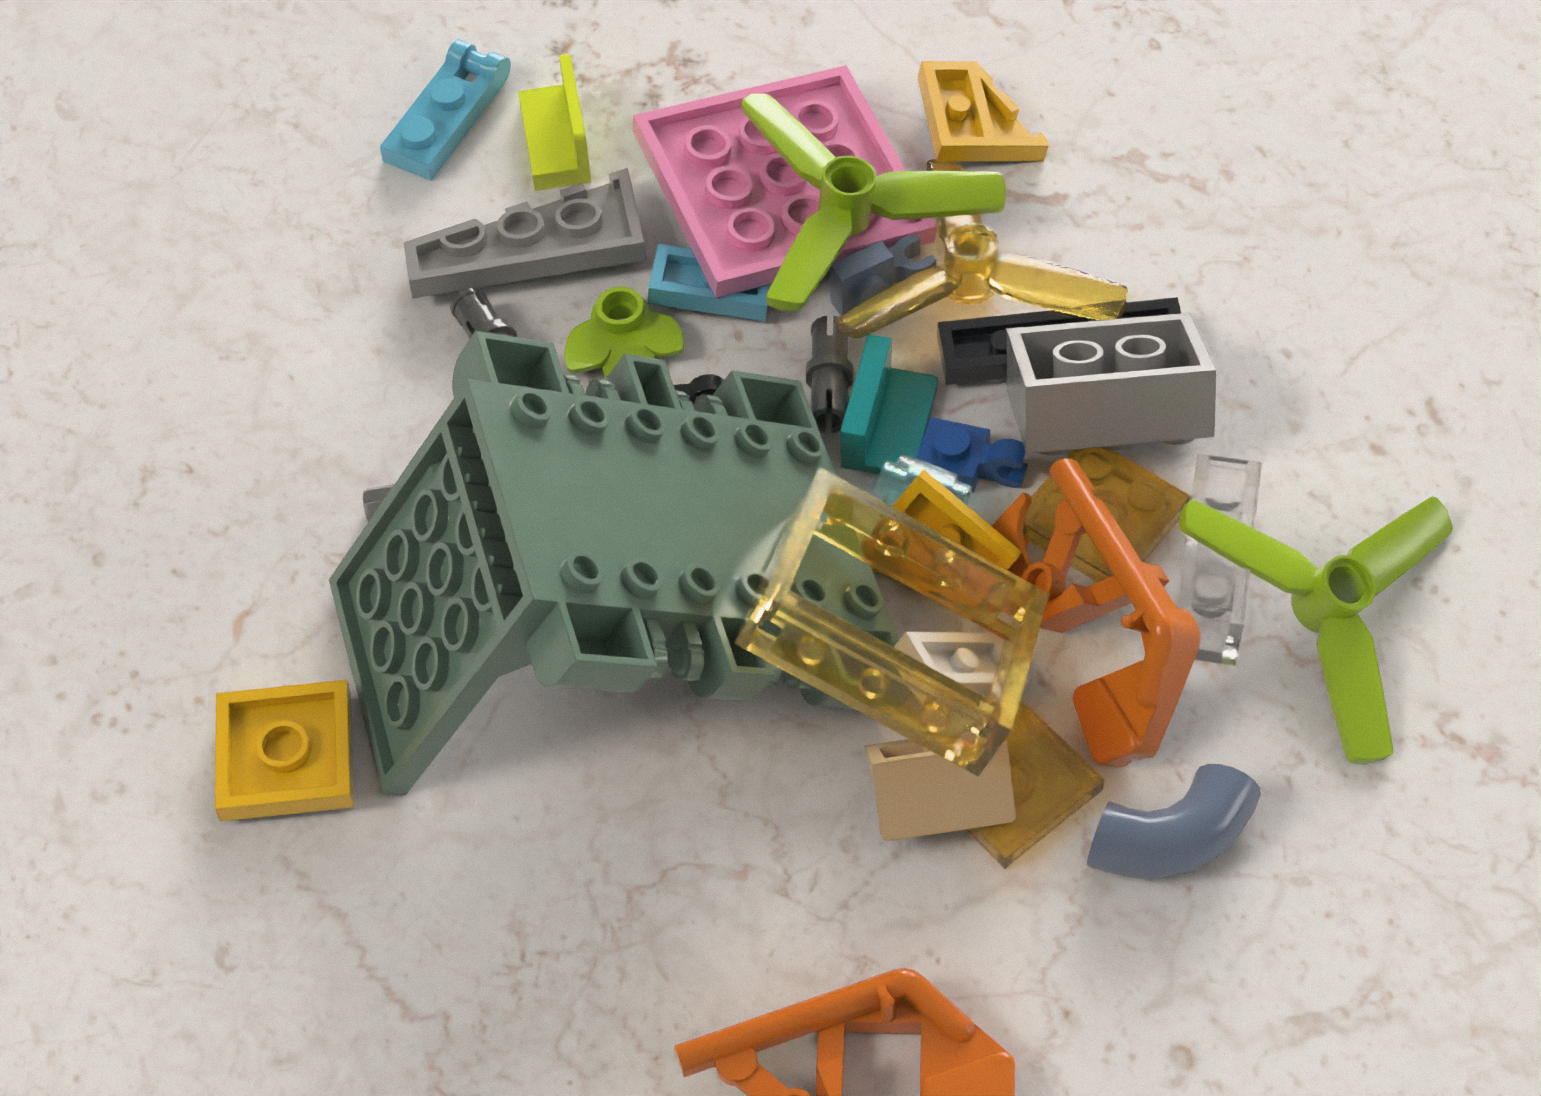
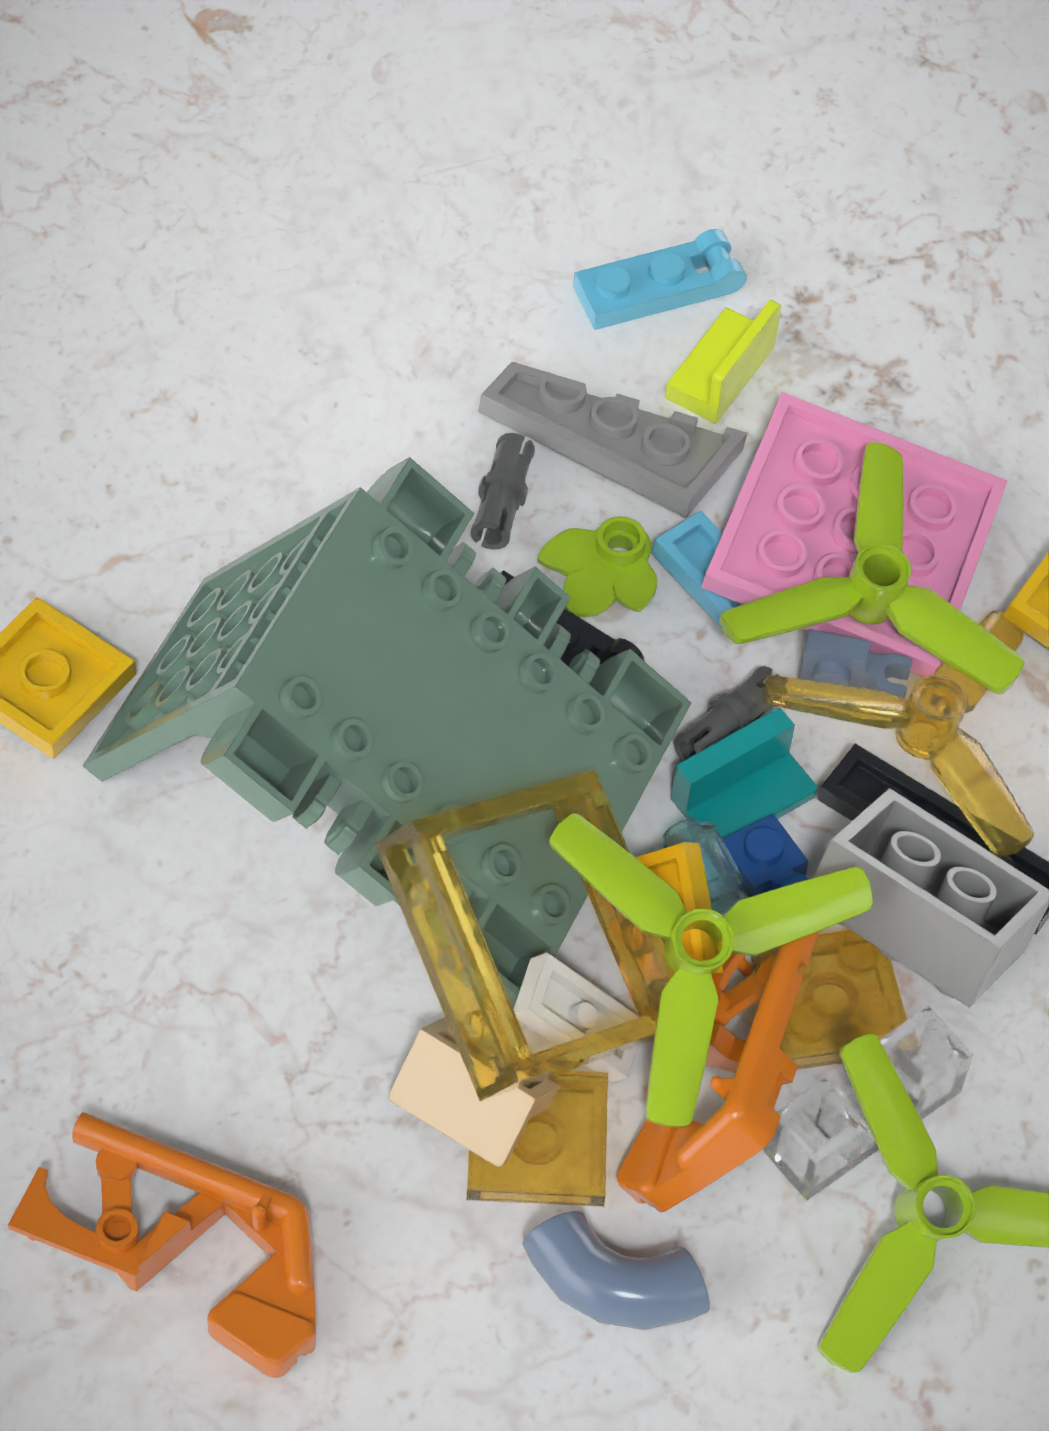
camera: 35 degrees right, 0 degrees up
(1041, 575) = (690, 996): none -> lime piece

